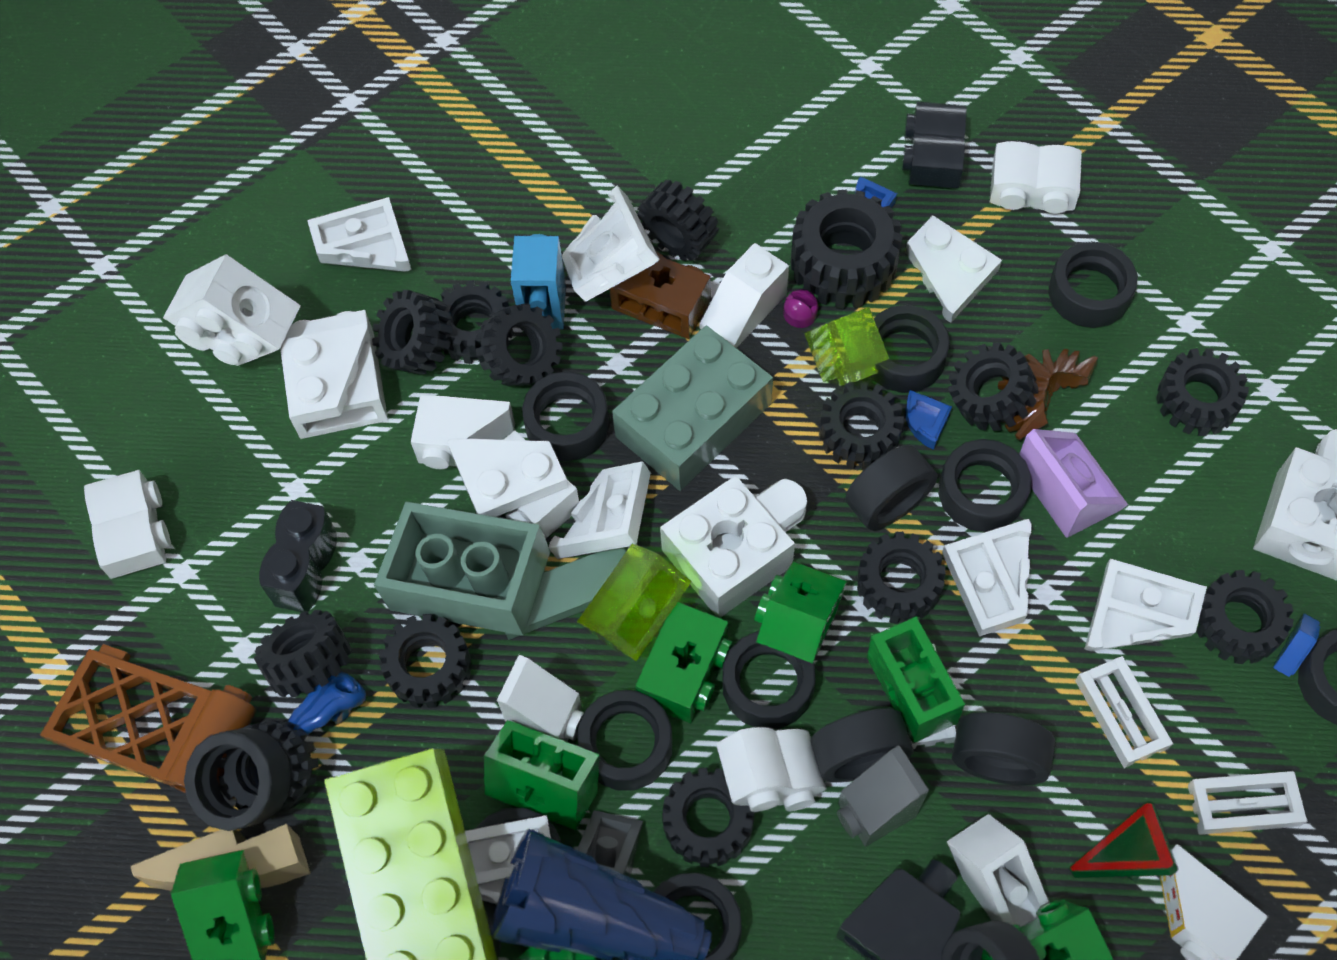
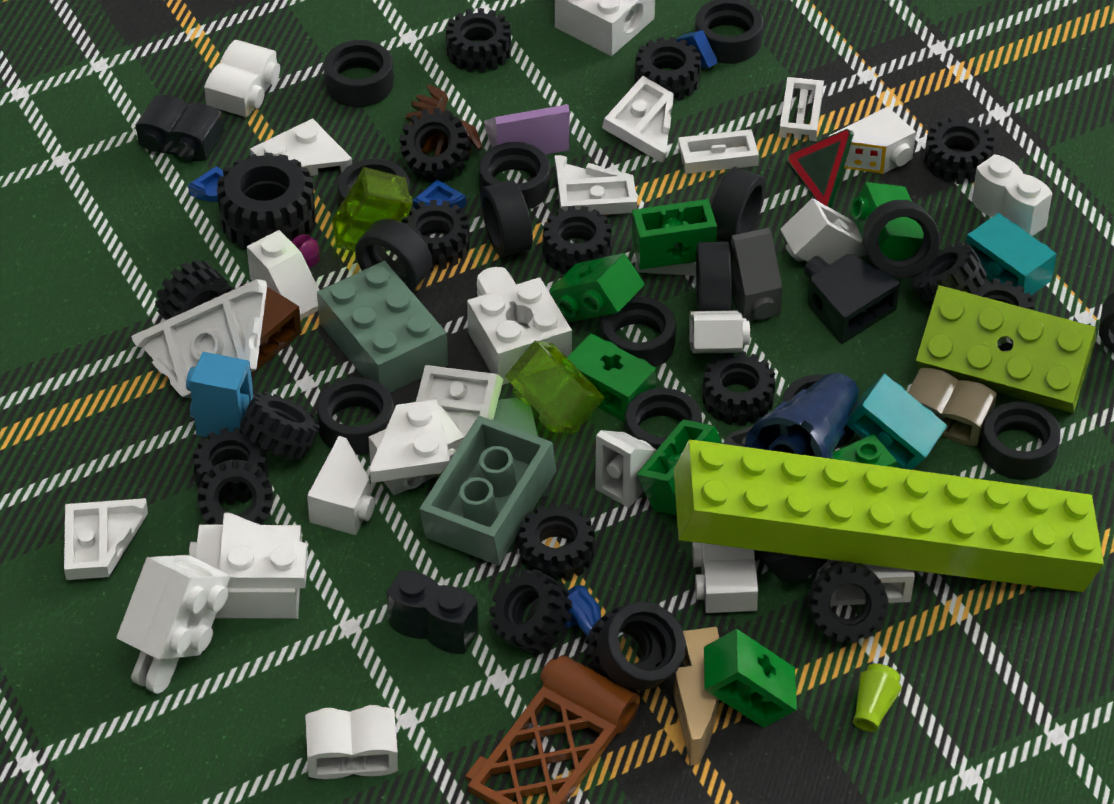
camera: 80 degrees left, 15 degrees down
(792, 386) = (403, 243): none -> black tyre

